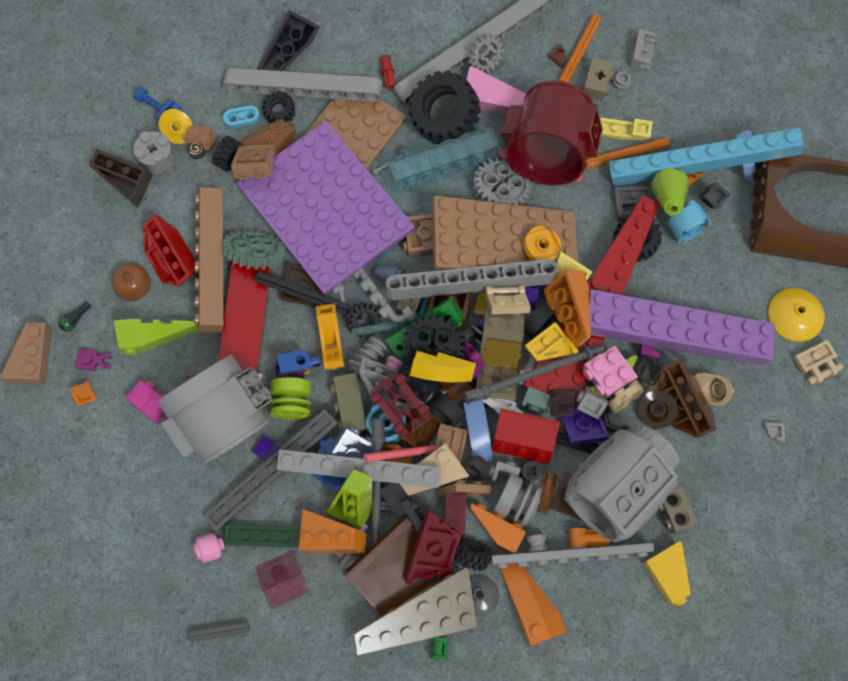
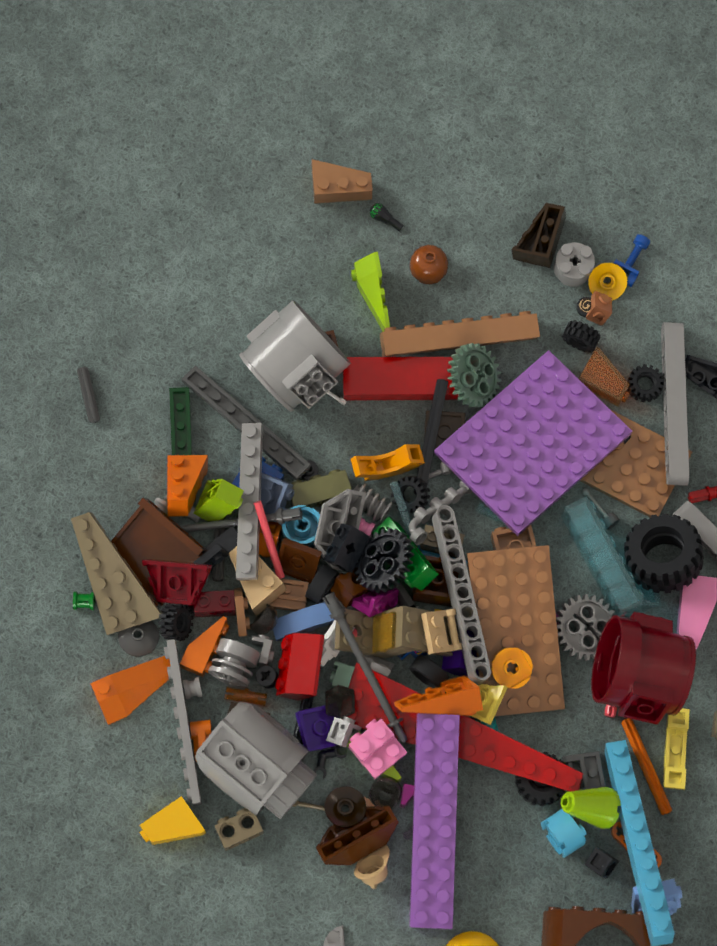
camera: 85 degrees right, 0 degrees up
(83, 393) = (307, 238): orange tile -> none
(90, 359) = (343, 238): magenta plate -> none
(145, 400) = (308, 295): dark pink brick -> none
(167, 252) = (463, 294): red wedge -> none
(208, 548) = (165, 374): bright pink head -> none
(241, 115) = (630, 347): medium azure plate -> none
(253, 161) = (570, 361): medium nougat plate -> none
(265, 448) = (268, 416): dark purple tile -> none
(282, 580) = (139, 445): clear pink slope -> none
(290, 398) = (317, 431): lime wheel -> none
(295, 364) = (350, 424): blue torso -> none
(386, 271) = (467, 518): sand blue cone -> none
(390, 409) = (309, 521): dark red piece -> none
(442, 368) = (357, 567): yellow slope -> none
(550, 345) = (400, 681): yellow wing -> none
(624, 396) = (349, 765): tan plate -> none

